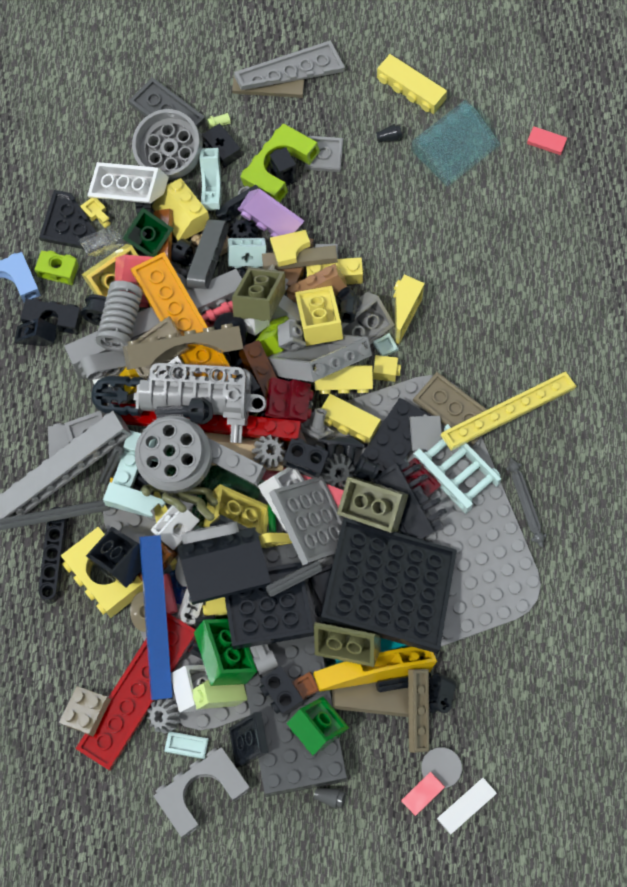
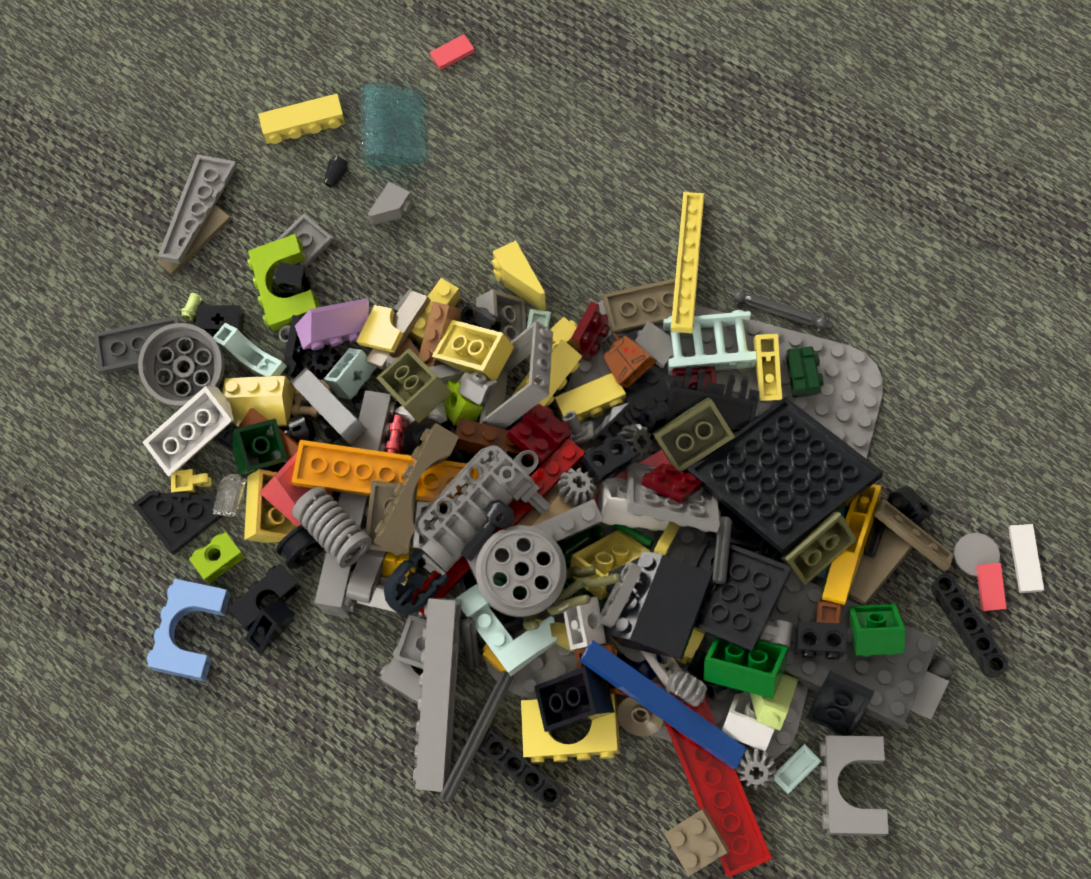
camera: 50 degrees left, 0 degrees up
(180, 625) = (686, 688): none -> light grey gear
(307, 801) = (929, 695): none -> light grey sticker
(321, 512) = (671, 482): none -> dark red plate
(386, 787) = (979, 630): none -> black beam
(393, 186) = (390, 204): none -> light grey slope
(394, 420) = (627, 359): none -> dark orange torso
(397, 382) = (590, 332): none -> dark red plate
(468, 521) = (768, 367): none -> light yellow slope
(486, 548) = (803, 371): none -> dark green brick

